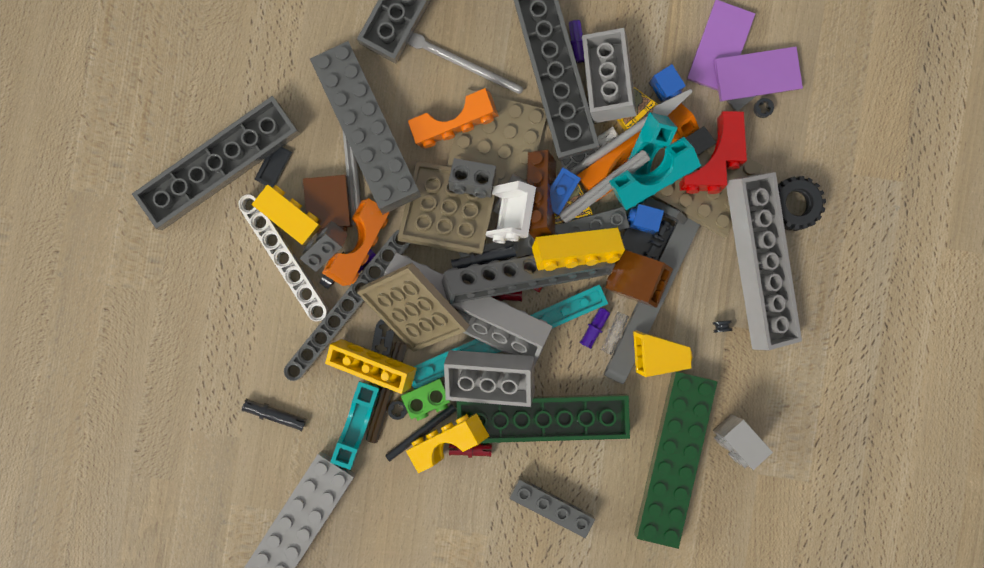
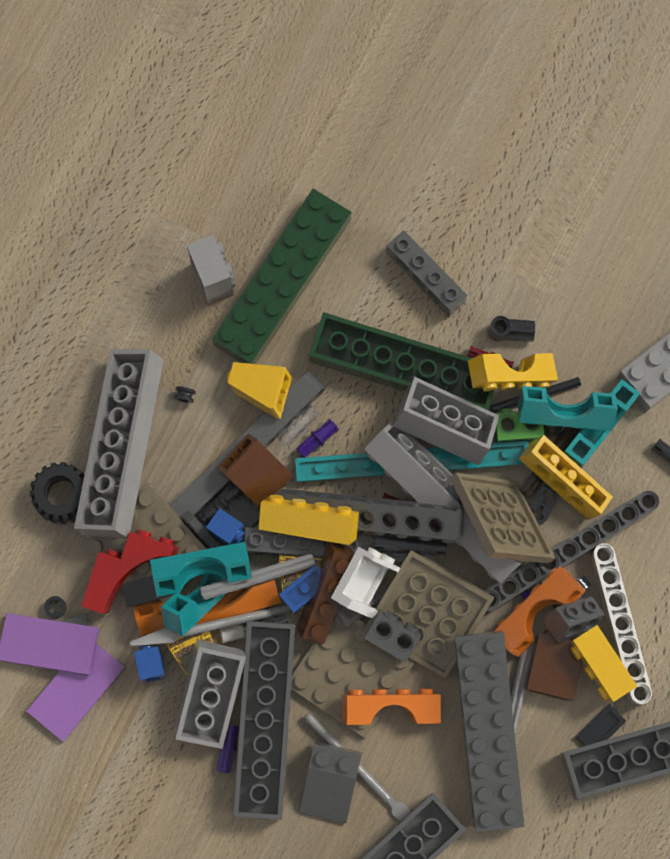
camera: 160 degrees left, 10 degrees down
(363, 431) = (594, 412): none -> teal arch
(457, 483) = (514, 329): none -> black piece
(483, 43) = (330, 782): none -> dark grey slope

